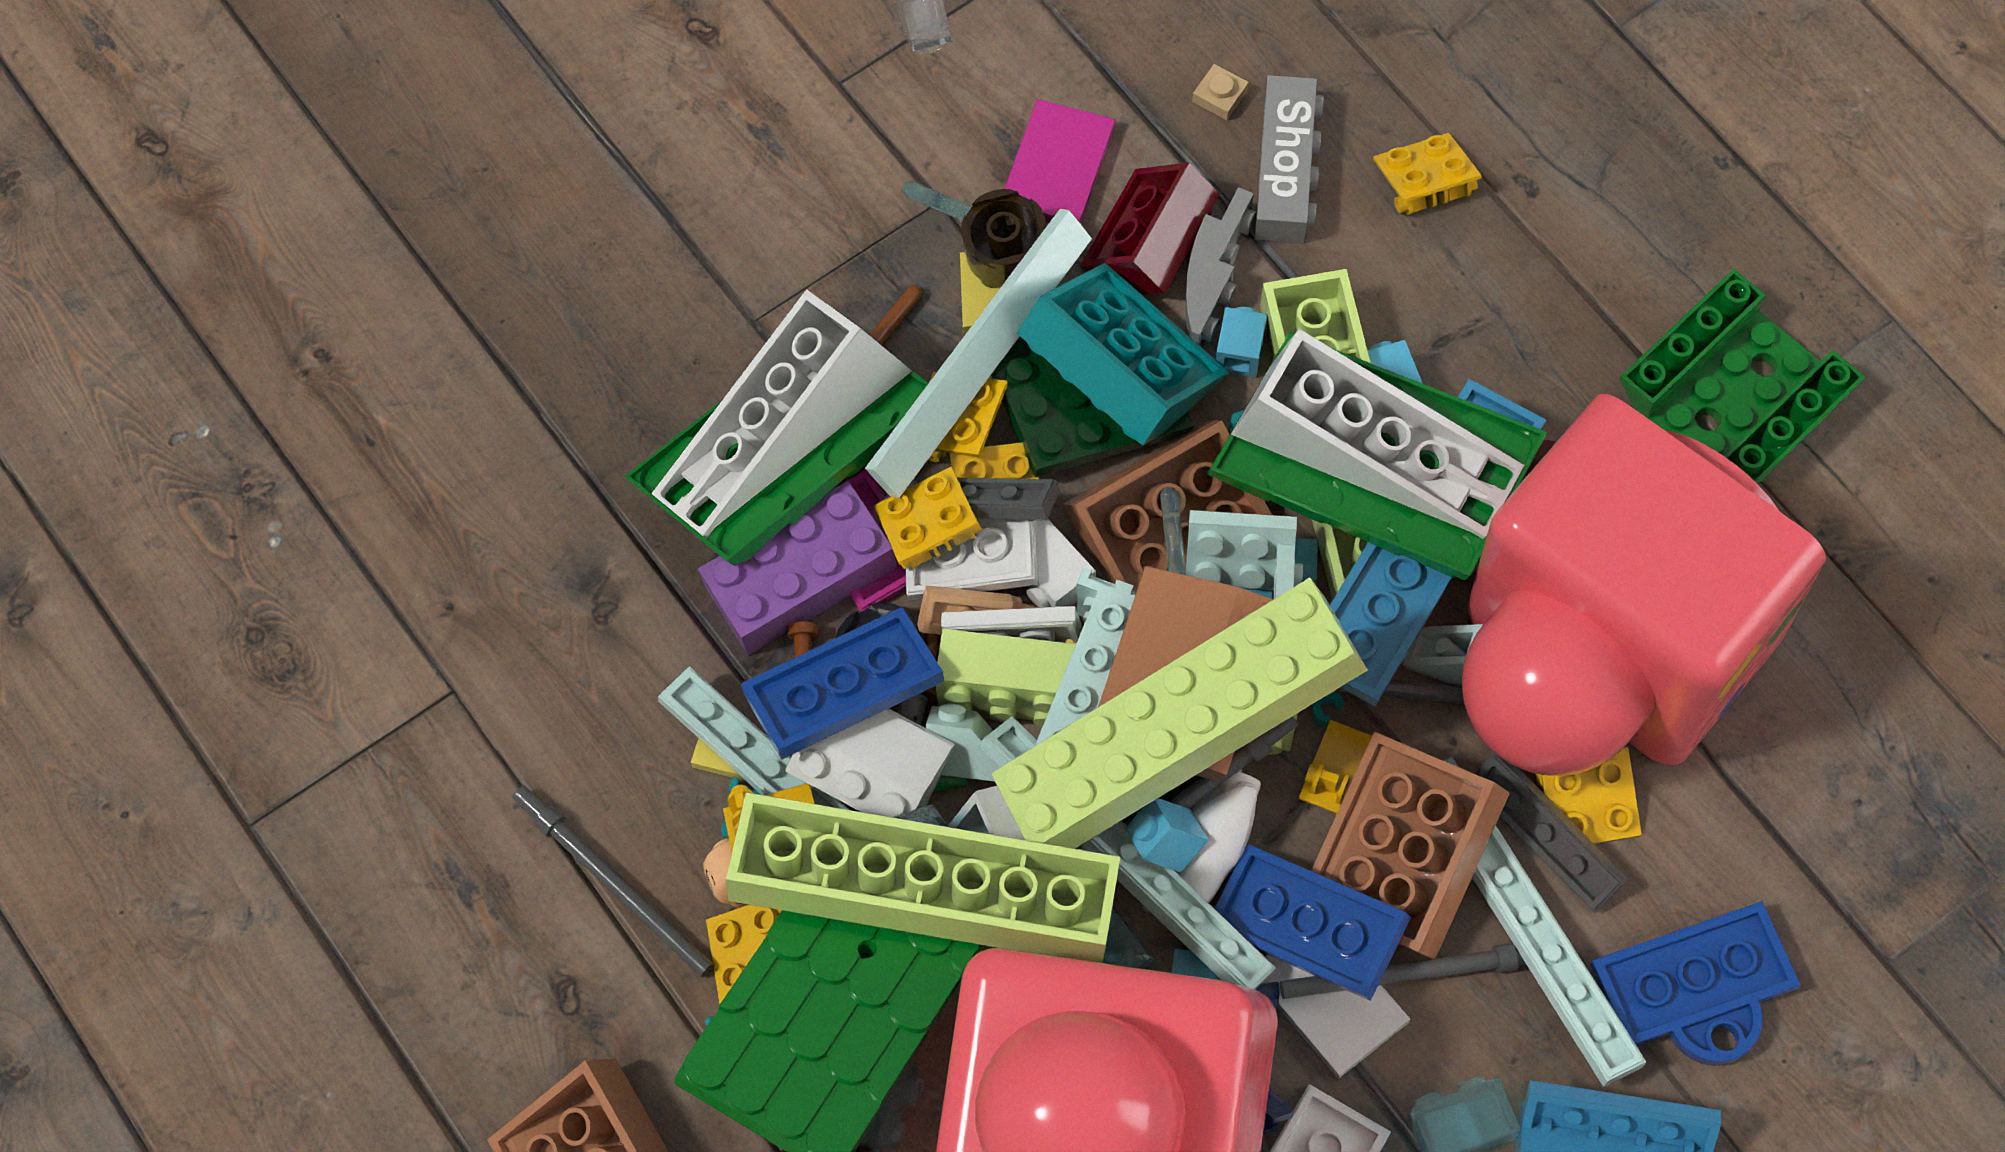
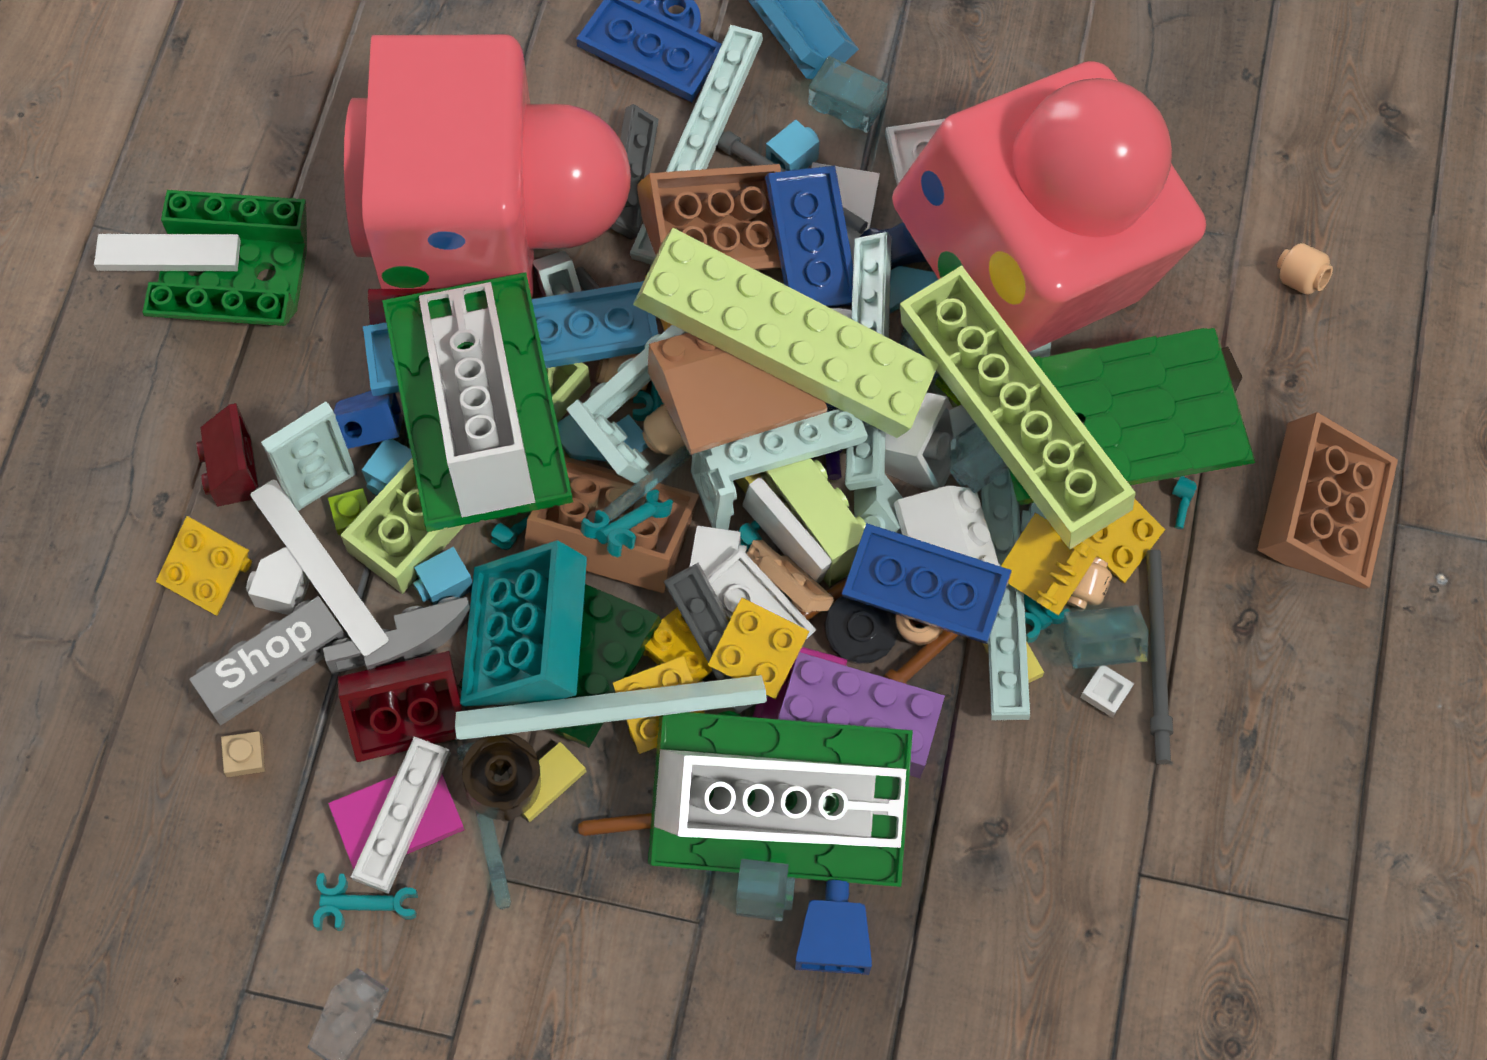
camera: 135 degrees left, 0 degrees up
(623, 801) = (1107, 690): none -> white plate
(637, 399) = (835, 934): none -> blue torso
(668, 836) = (1105, 636): none -> clear light blue brick
(718, 359) = (764, 890): none -> clear light blue brick
(1023, 73) = (333, 901): none -> teal bar
(1051, 157) = (400, 815): none -> white tile
(1145, 476) = (619, 530): none -> teal bar
(1335, 240) = (319, 568): none -> white sticker
(1353, 219) = (278, 583): none -> white slope
(1382, 320) = (347, 508): none -> lime plate
(1438, 279) = (309, 456): none -> light aqua tile
(1439, 1008) = (793, 147): none -> medium azure brick
(1455, 361) = (368, 418): none -> blue torso
(1513, 252) = (228, 458): none -> dark red slope
(1793, 341) = (167, 252): none -> white tile

